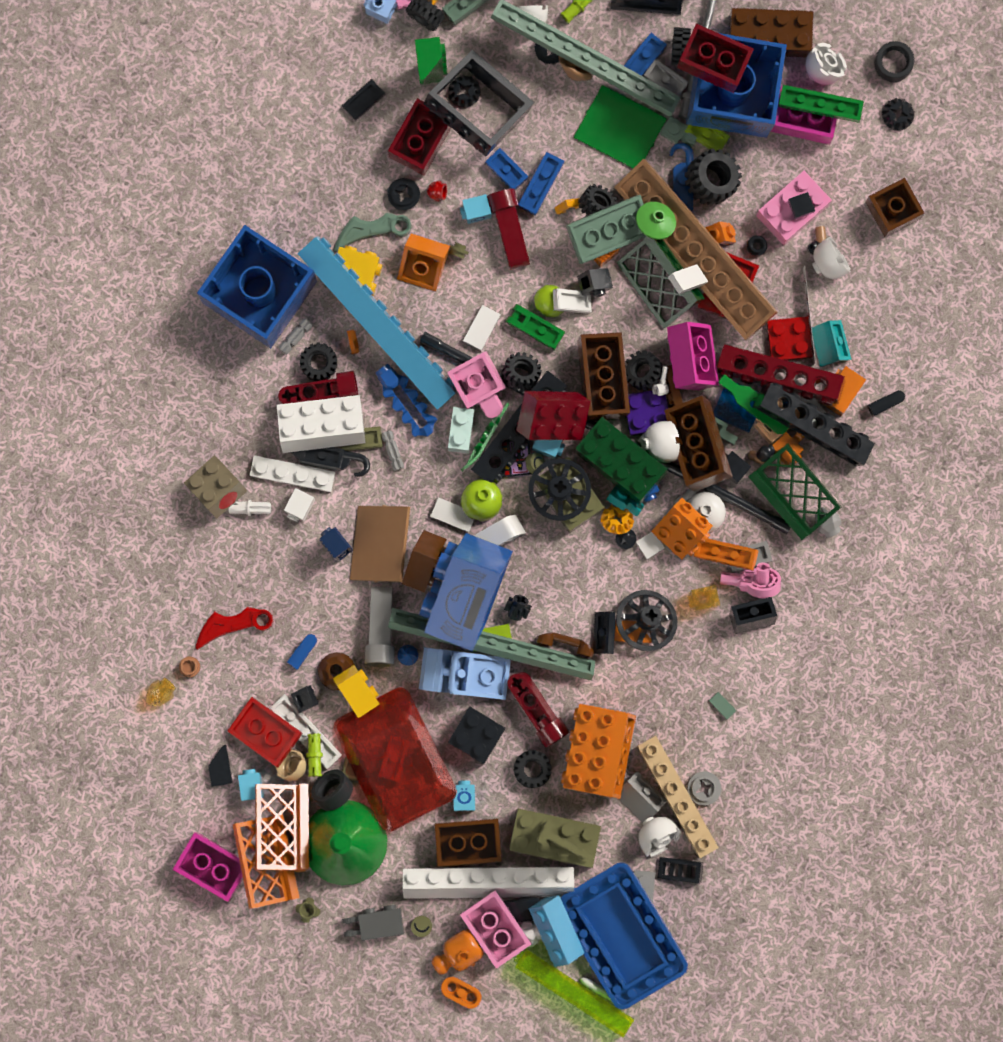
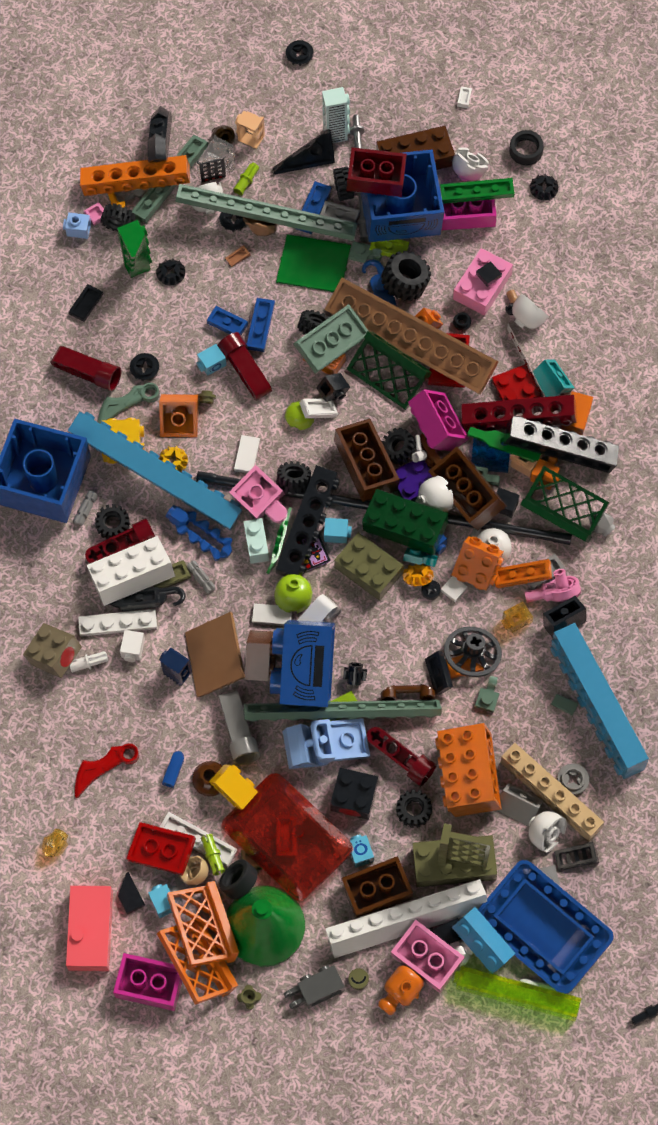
camera: 15 degrees left, 15 degrees down
(169, 792) = (89, 928): none -> coral brick
(189, 667) = (74, 814): nougat plate -> none
(304, 699) = (188, 808): black tile -> none
(353, 341) = (135, 492): orange tile -> none
(357, 191) = (87, 368): none -> dark red beam
(408, 655) = (269, 744): blue plate -> none
(411, 307) = (181, 457): none -> yellow gear
(418, 139) = (145, 315): dark red brick -> none
(437, 191) = (172, 355): red plate -> none
(461, 992) = (414, 1026): orange plate -> none
(496, 83) = (193, 255): black window -> none
(533, 461) = (330, 549): olive tile -> none
(535, 327) = (293, 439): green plate -> none
(542, 94) = (237, 256): none -> nougat piece
(553, 415) = (333, 499): dark red brick -> none
(559, 489) = (359, 558): black wheel -> none
(565, 205) = (288, 333): light orange tile -> none
(645, 674) = (487, 697): none -> sand green plate
(652, 226) = (369, 320): bright green dish -> none
(687, 279) = (412, 357): white tile -> none
(757, 717) = (599, 701): none -> dark azure brick
(762, 454) = (525, 484): black arm -> none
(886, 402) = (616, 413): black bar -> none
(894, 207) = (567, 256): reddish brown brick -> none

